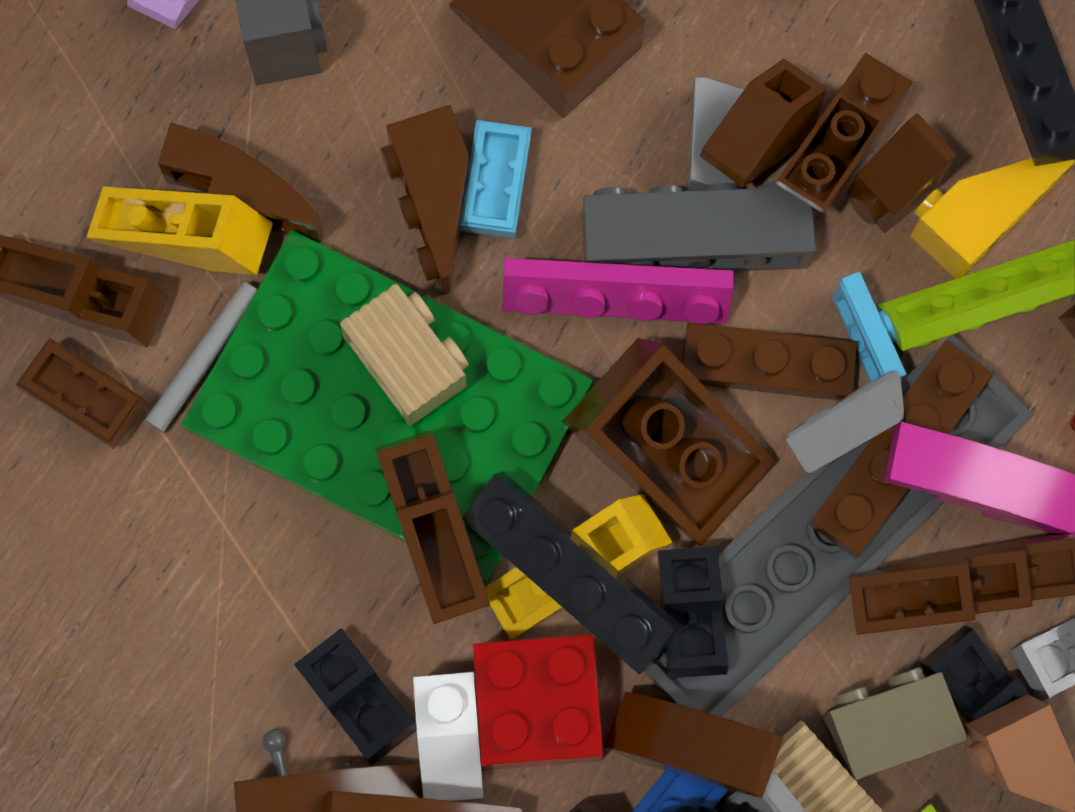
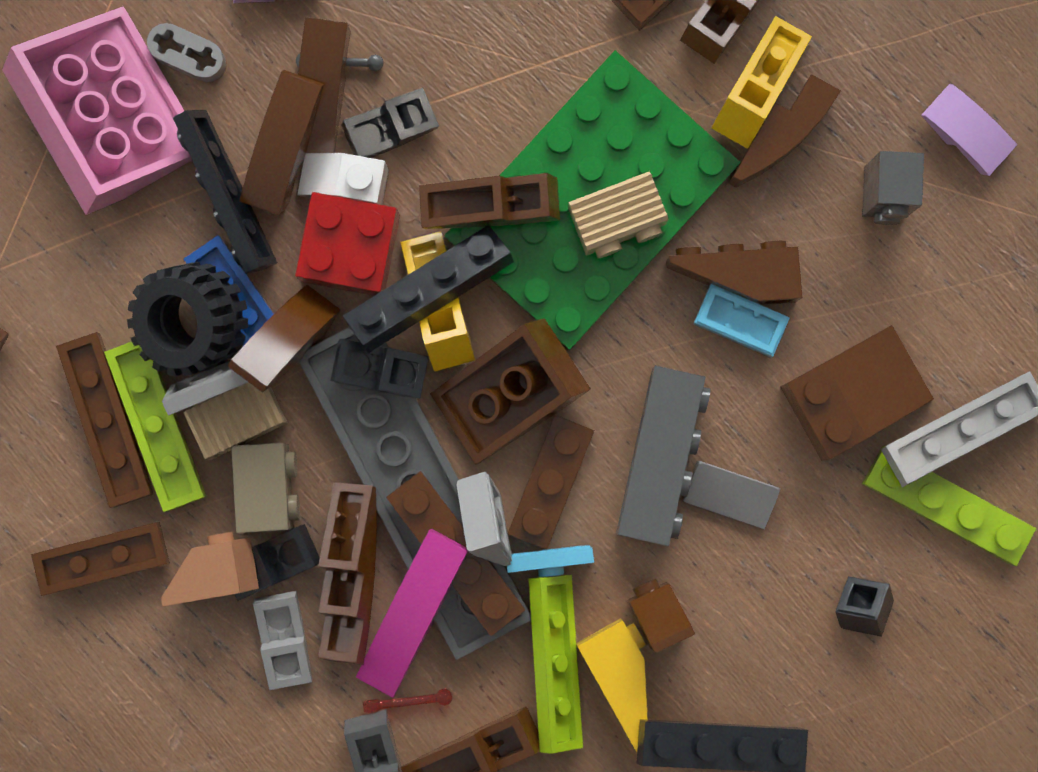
camera: 110 degrees right, 10 degrees up
(200, 359) = (662, 76): light grey bar -> none
(617, 291) = (626, 396): dark pink plate -> none
(765, 123) = (727, 527): reddish brown slope -> none
(845, 133) = (701, 583): reddish brown slope -> none

